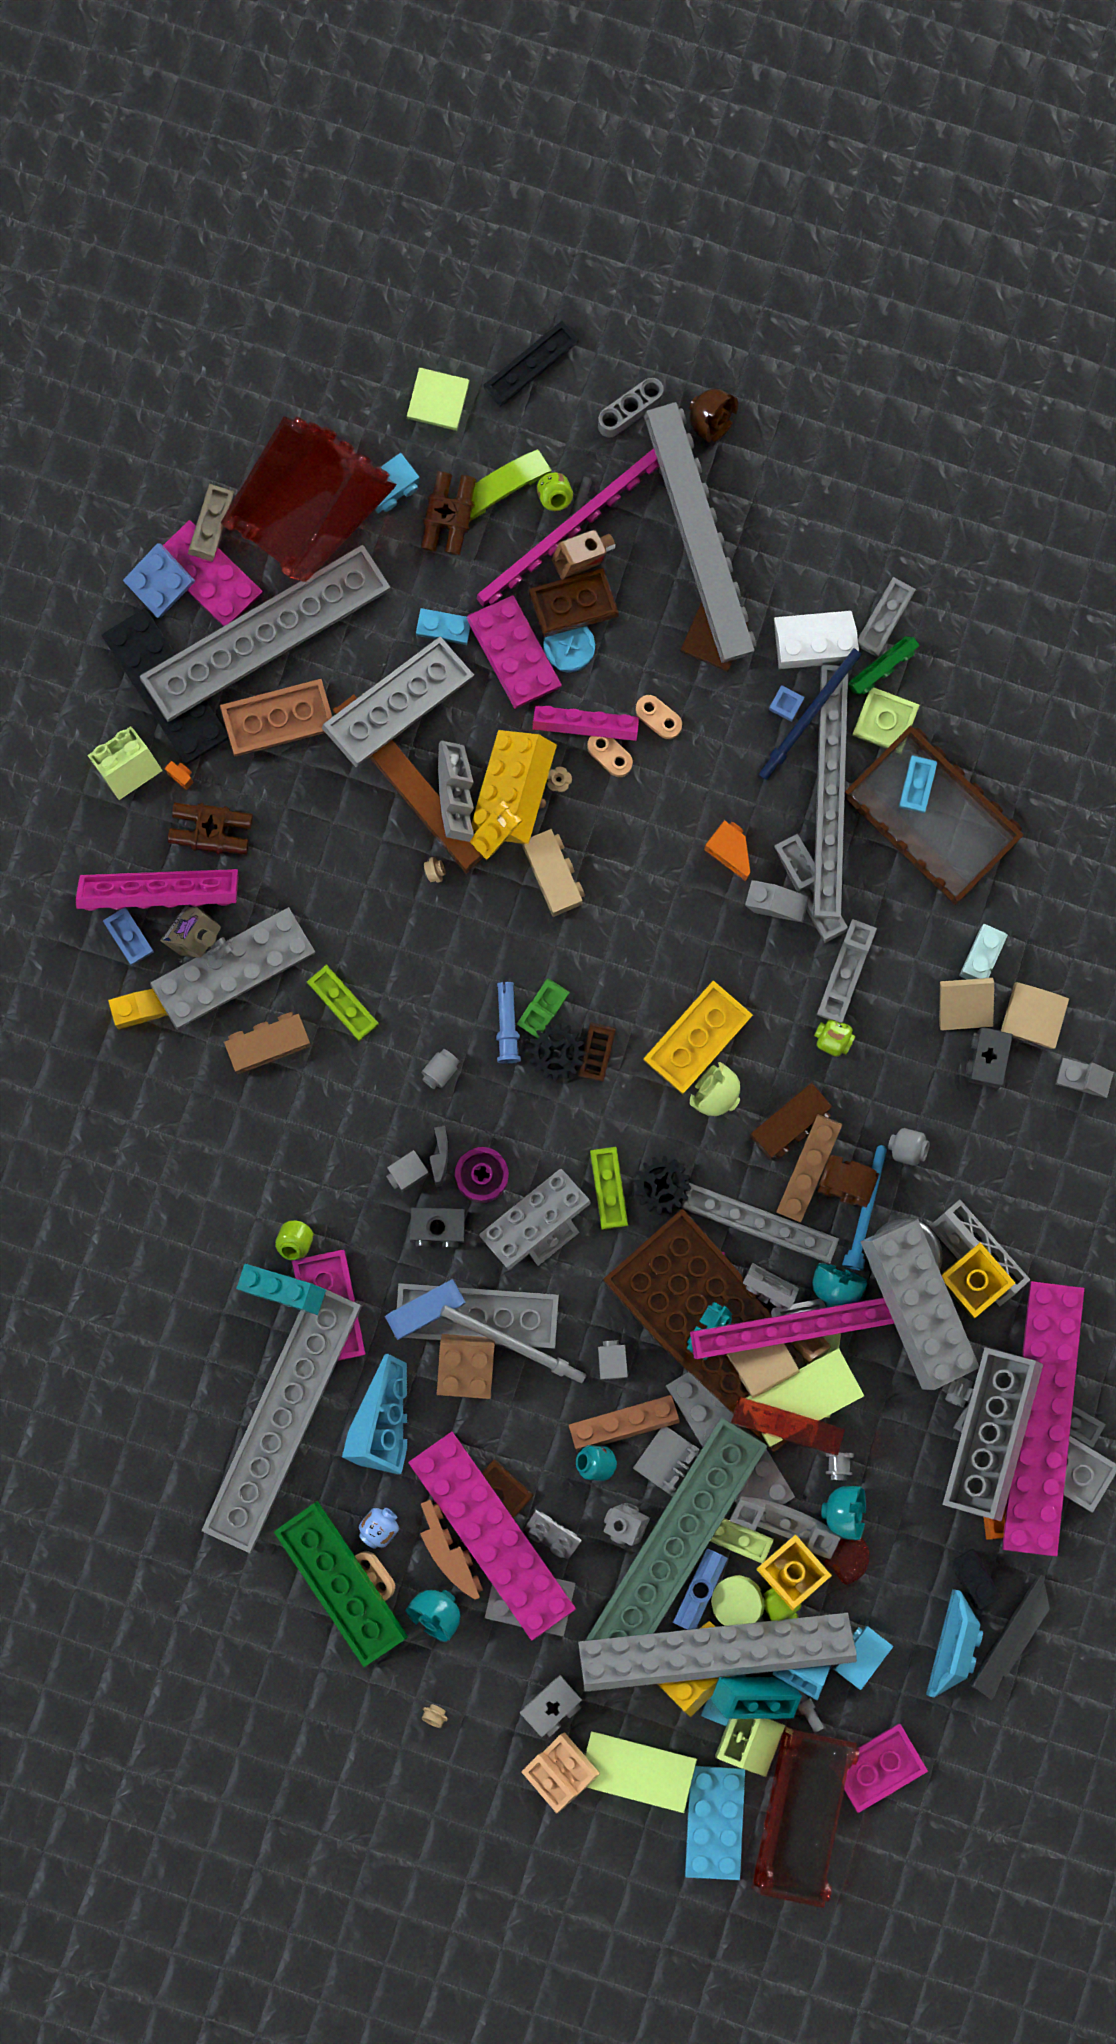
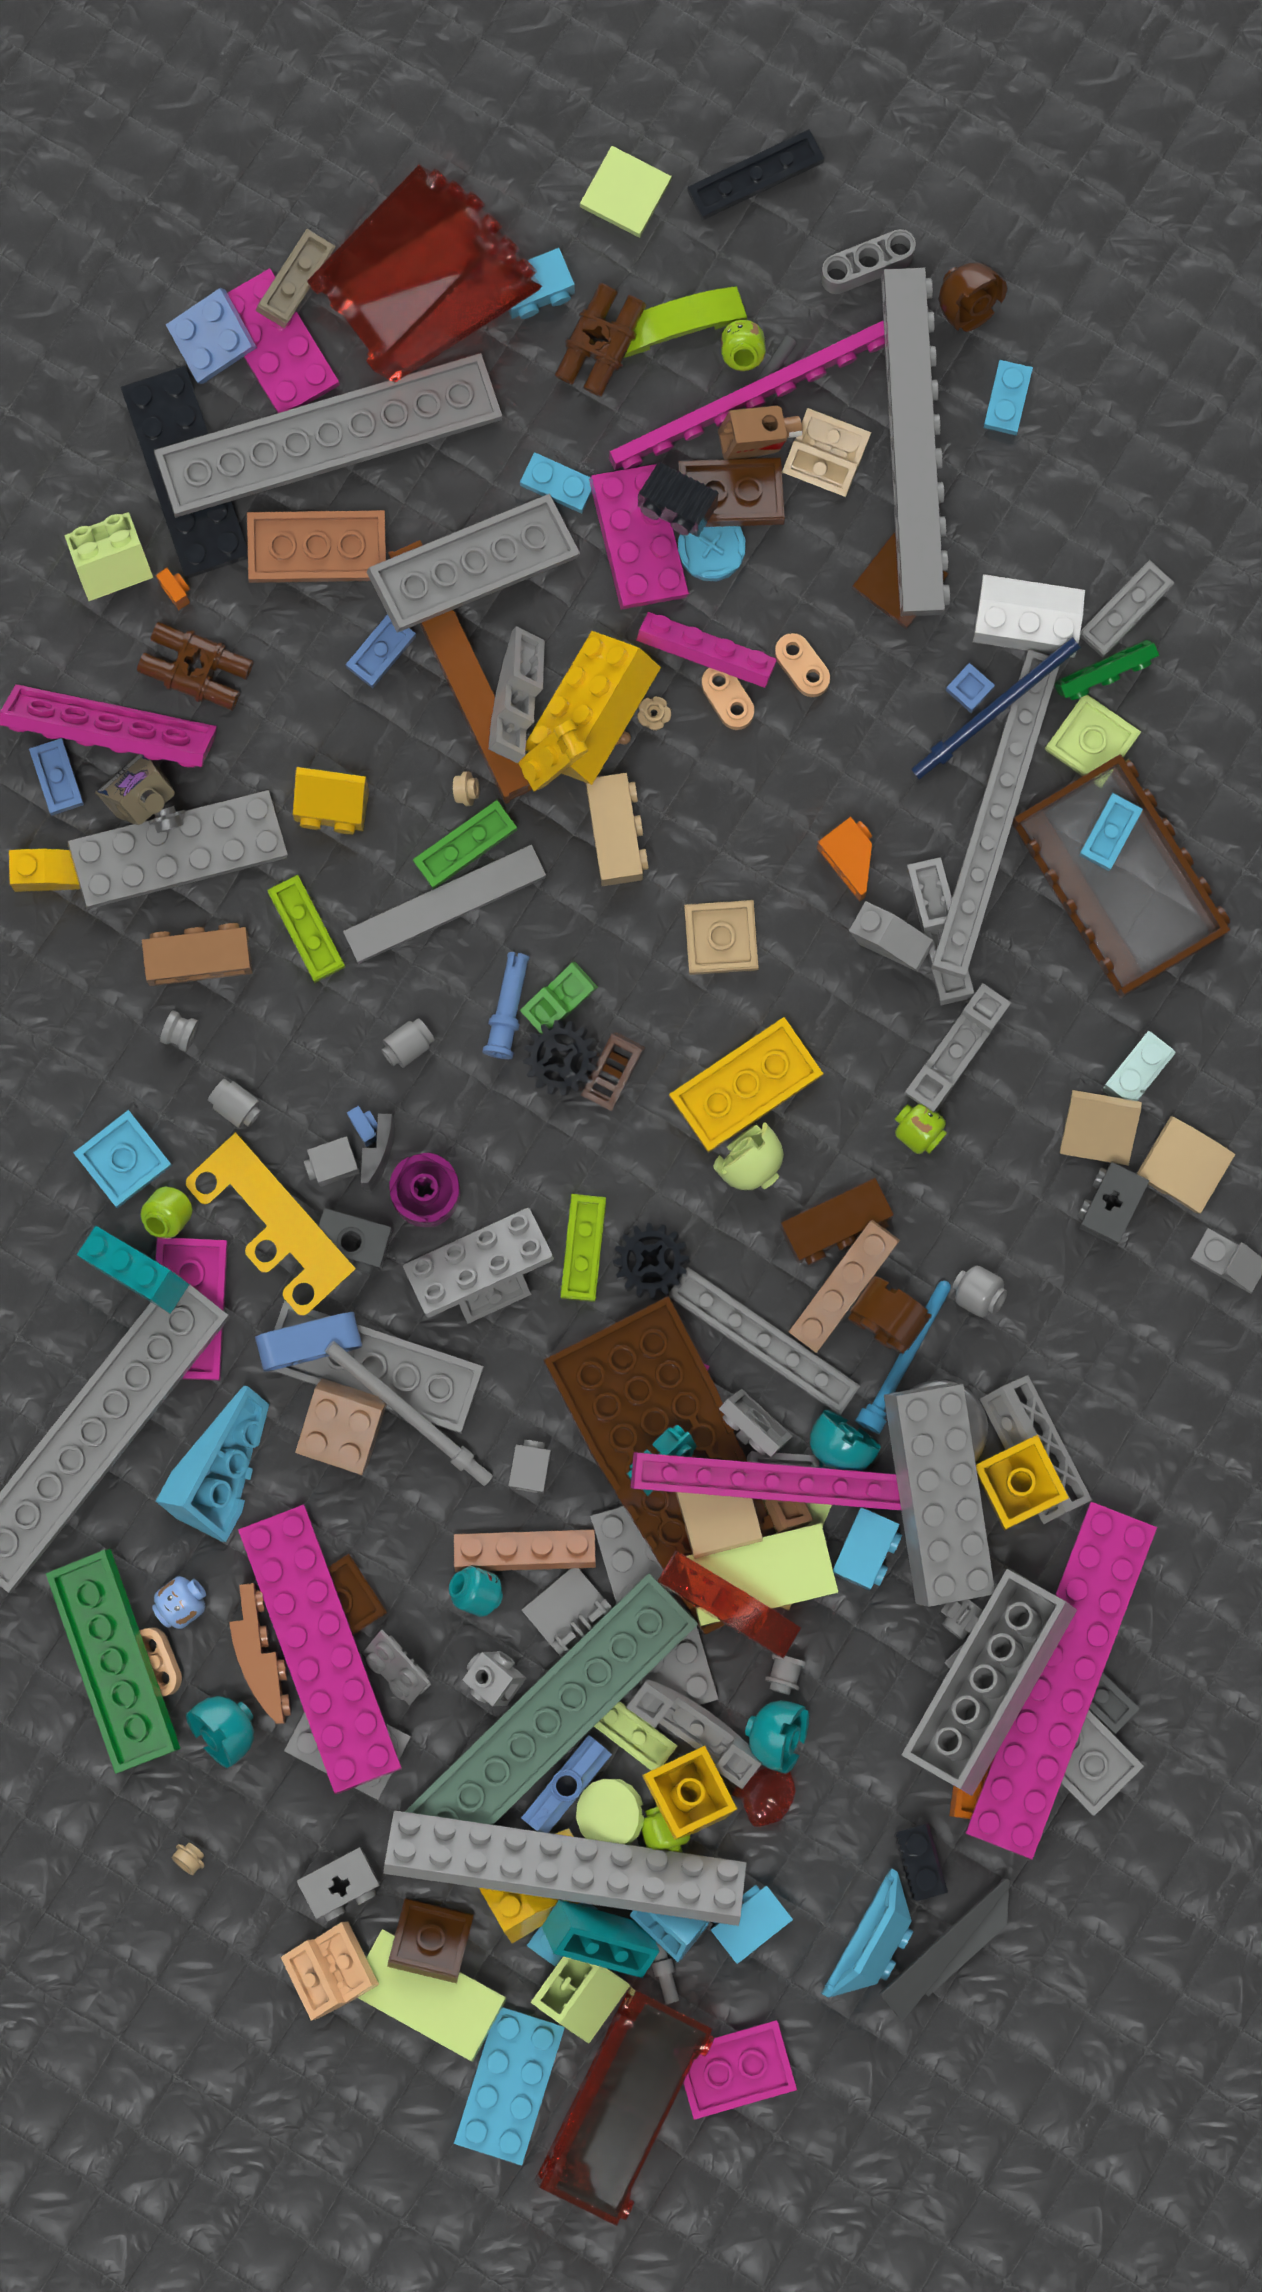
camera: 20 degrees right, 0 degrees up
(251, 1208) = (122, 1159): none -> medium azure plate
(268, 1102) = (179, 1031): none -> light grey wheel
(324, 1146) = (235, 1103): none -> light grey brick
(337, 903) = (330, 800): none -> yellow slope
(344, 784) = (379, 652): none -> medium blue plate
(386, 1225) = (285, 1219): none -> yellow piece
(423, 1137) = (364, 1125): none -> medium blue plate
(440, 959) = (444, 904): none -> light grey tile
(444, 911) = (465, 844): none -> bright green plate
(537, 618) = (677, 500): none -> black brick
(629, 1731) = (430, 1940): none -> reddish brown tile
(636, 555) = (827, 452): none -> tan slope
(651, 933) = (721, 937): none -> tan tile
(758, 482) = (1008, 397): none -> medium azure plate
(875, 1358) = (866, 1549): none -> medium azure brick

